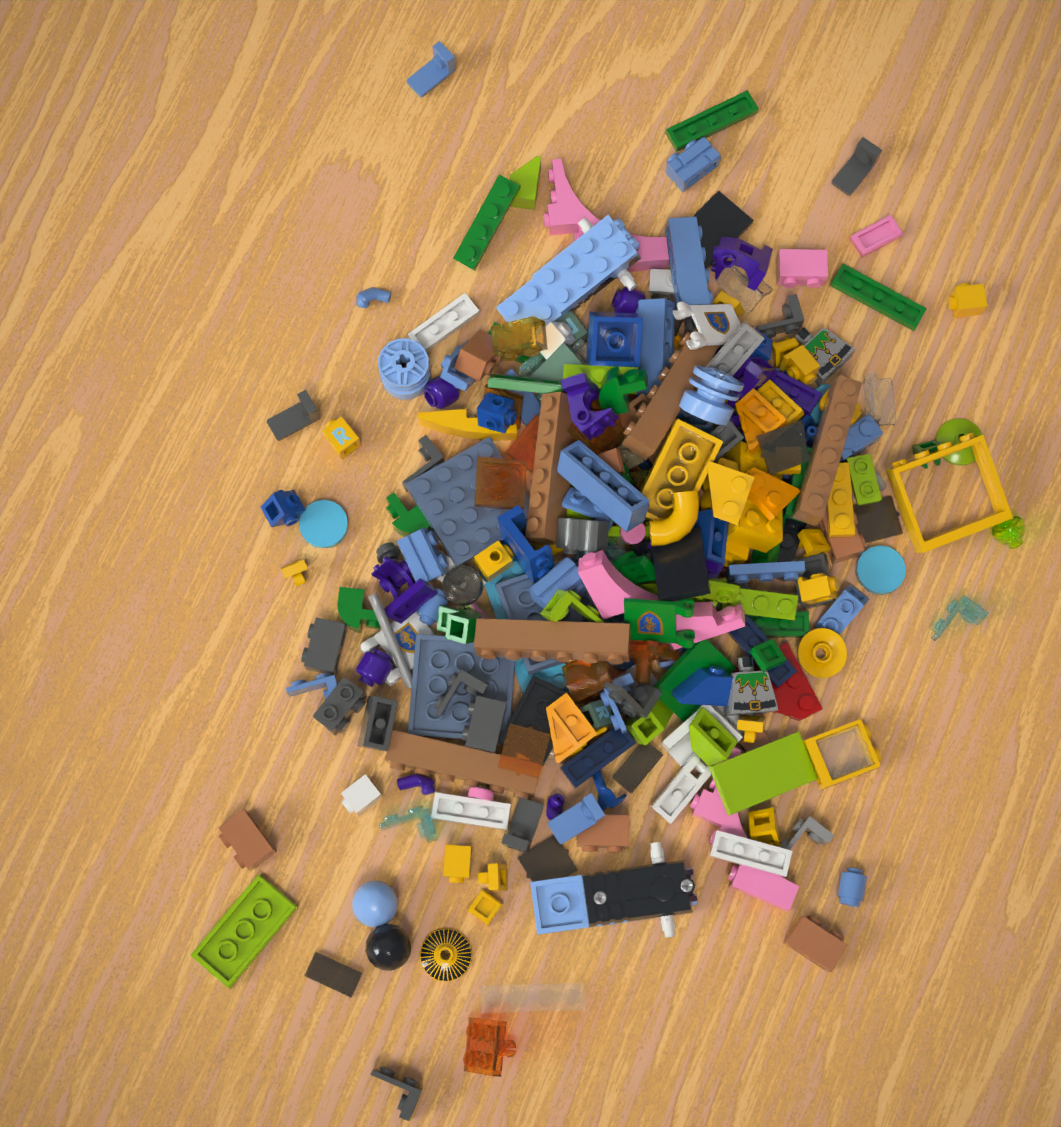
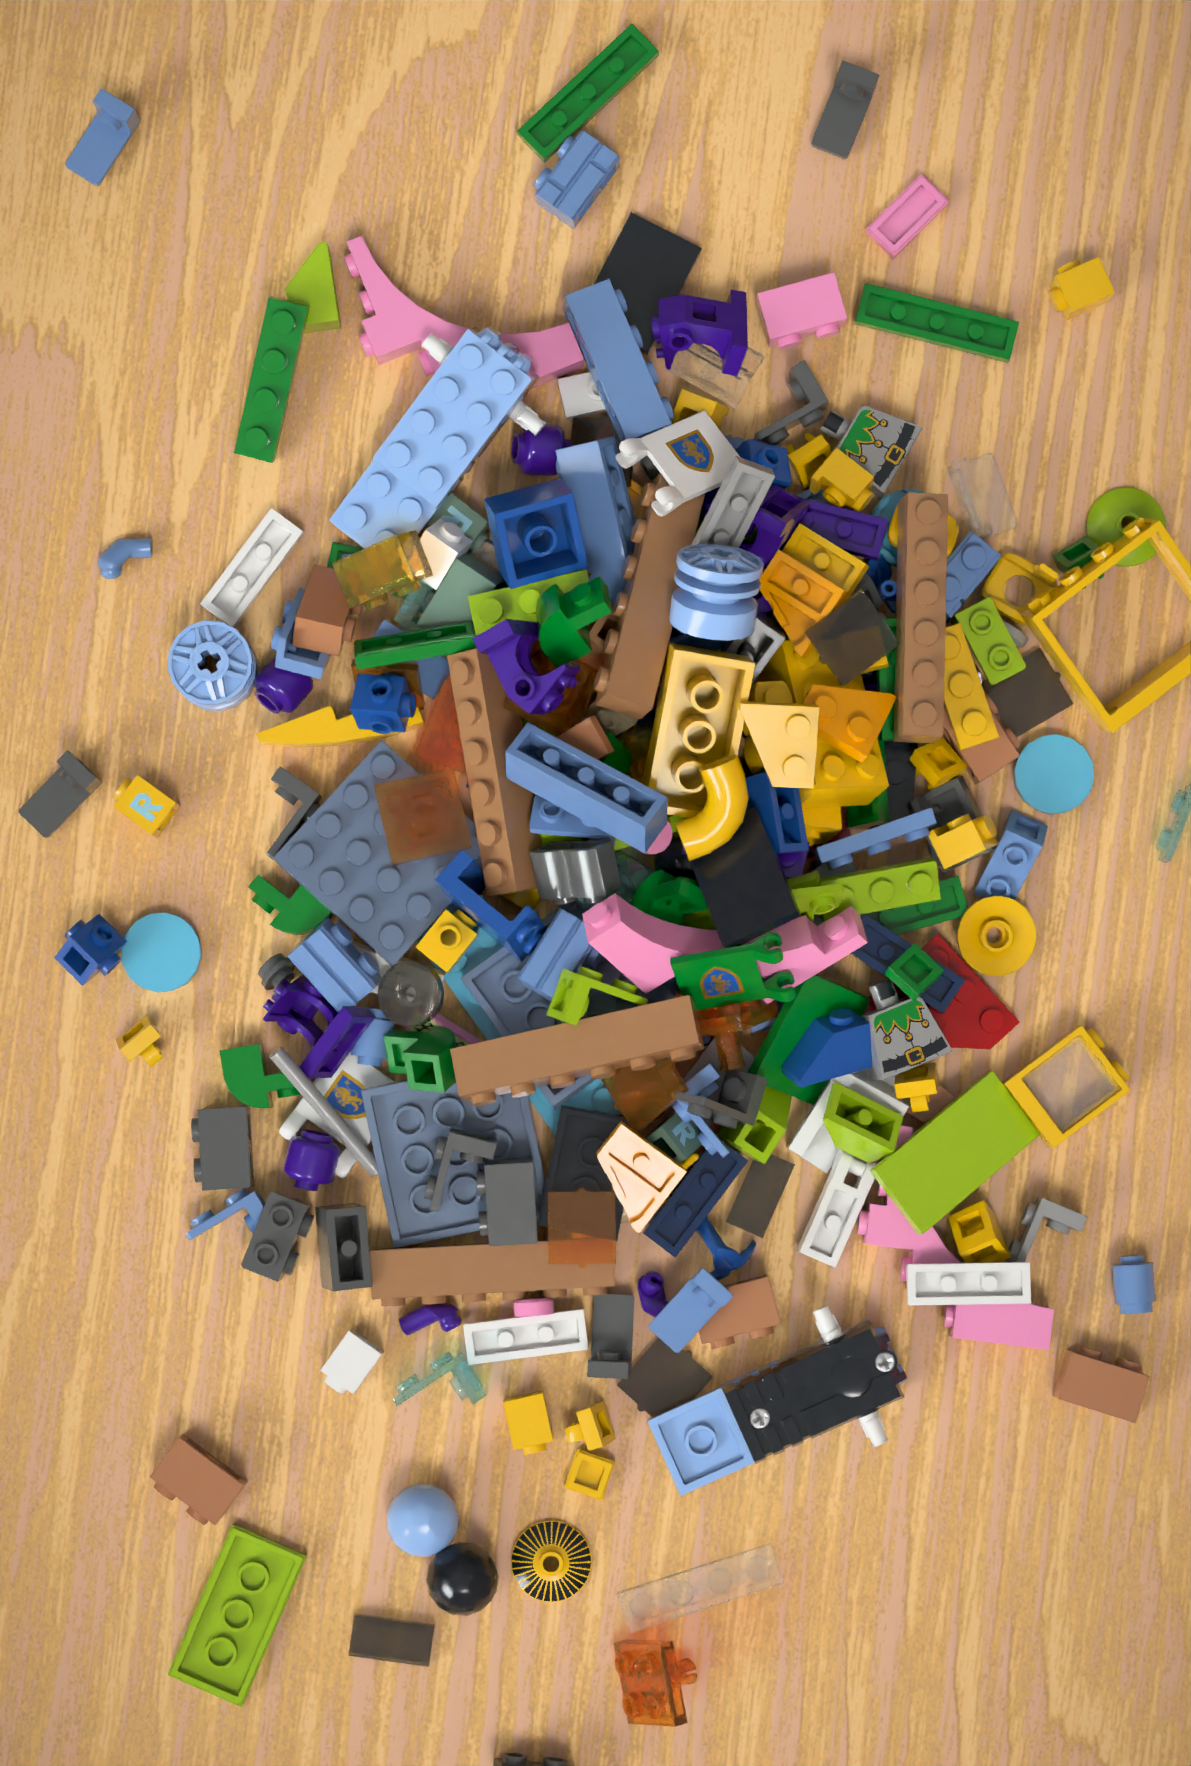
camera: 15 degrees left, 10 degrees up
(889, 444) = (1013, 565): none -> yellow piece

